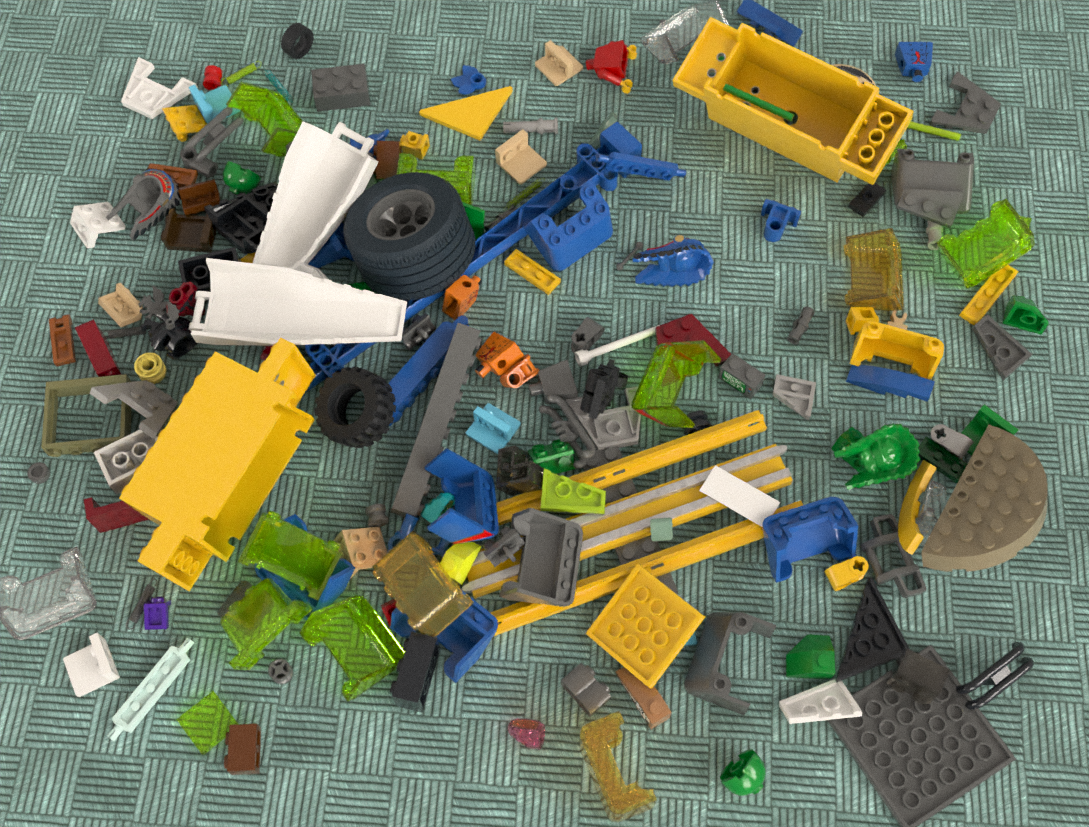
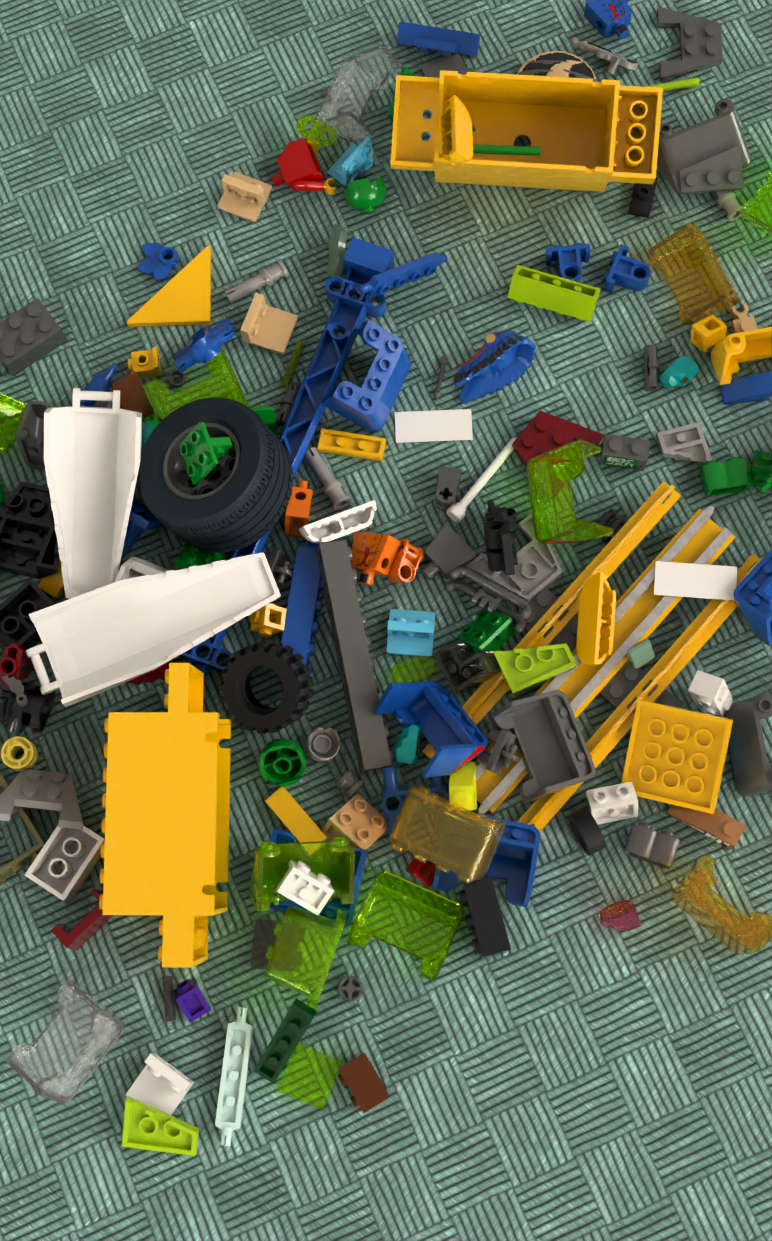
camera: 25 degrees left, 10 degrees up
(67, 697) = (156, 1130): none -> lime wing
(202, 679) = (285, 1040): none -> dark green plate
(287, 566) = (305, 887): none -> white bracket
(319, 515) = (294, 817): none -> yellow tile
(334, 470) = (282, 762): none -> green cylinder
(373, 474) = (322, 744): none -> light grey hair
(389, 362) = (268, 620): none -> yellow brick
(404, 208) = (202, 452): none -> green bracket
(428, 161) = (181, 380): none -> dark grey hinge
(462, 146) = (204, 345): none -> blue piece
(482, 457) = (413, 670): none -> clear neon green tile
(484, 319) = (339, 524): none -> white brick
(497, 292) = (331, 486): none -> light grey pin
(538, 648) = (586, 831): none -> black tyre
(572, 638) = (613, 803): none -> white bracket
(603, 288) = (433, 425): none -> white sticker
(638, 42) = (317, 131): none -> clear neon green plate
(640, 485) = (596, 620): none -> yellow brick
(648, 101) = (365, 194): none -> green cylinder
(652, 77) = (352, 163): none -> medium azure bracket
(702, 591) = (710, 694): none -> white brick
(731, 73) = (455, 132): none -> yellow brick
(752, 234) = (553, 293): none -> lime brick
(814, 434) = (725, 476): none -> green brick
(818, 246) = (624, 272): none -> blue pin
(821, 338) = (680, 372): none -> teal rock
(894, 85) = (606, 54): none -> light grey piece

